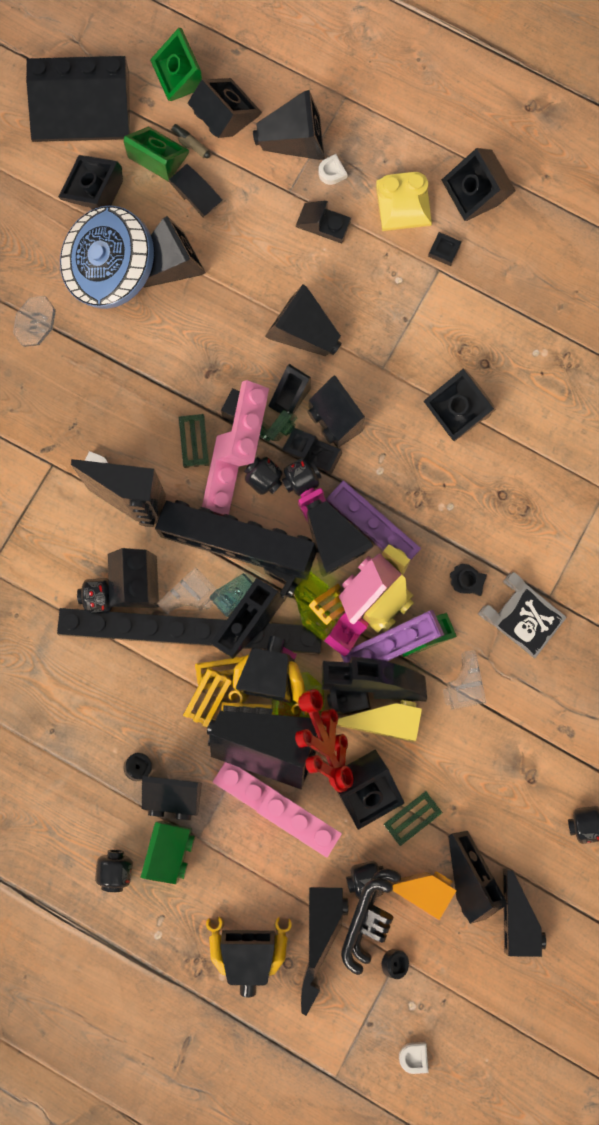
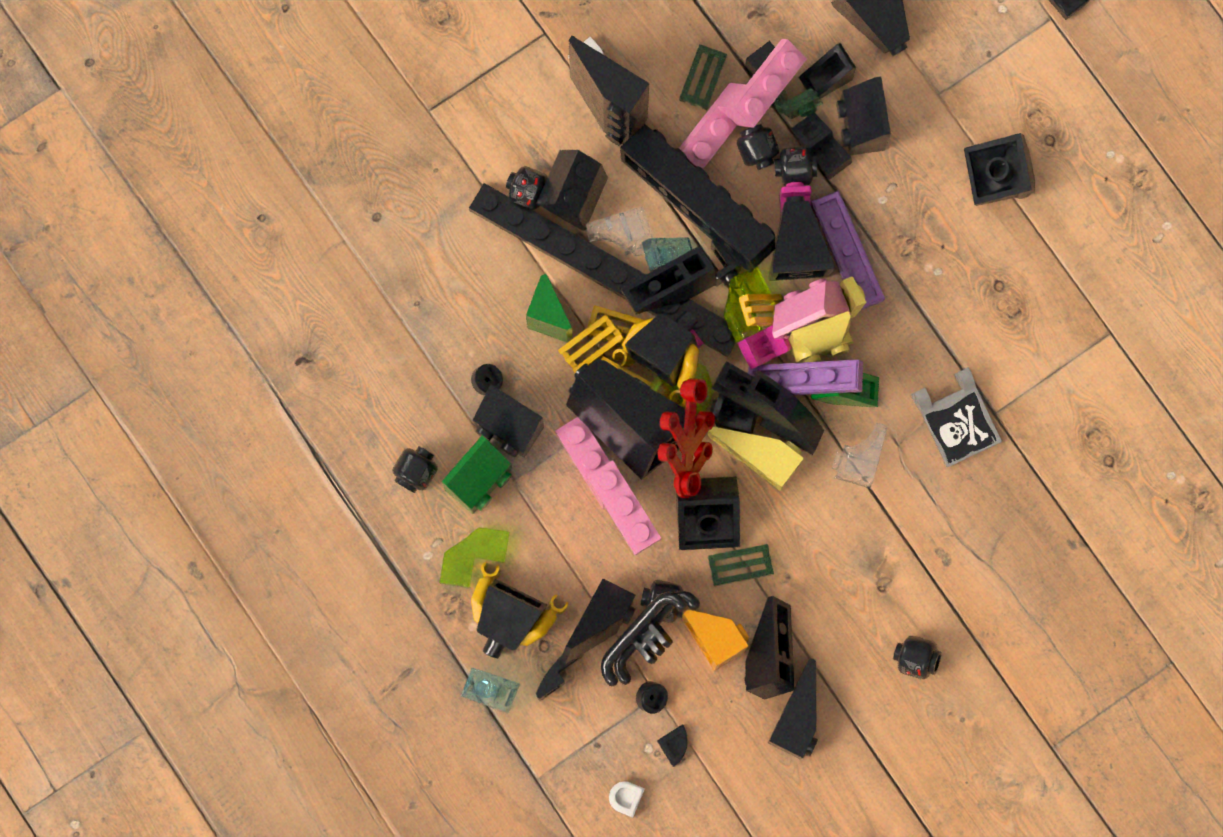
camera: 25 degrees right, 0 degrees up
(159, 691) = (546, 312): none -> green slope
(186, 927) = (480, 544): none -> clear neon green tile
(263, 1027) = (490, 690): none -> clear light blue slope
(431, 993) = (674, 745): none -> black tile
(467, 579) = (917, 354): black animal -> none

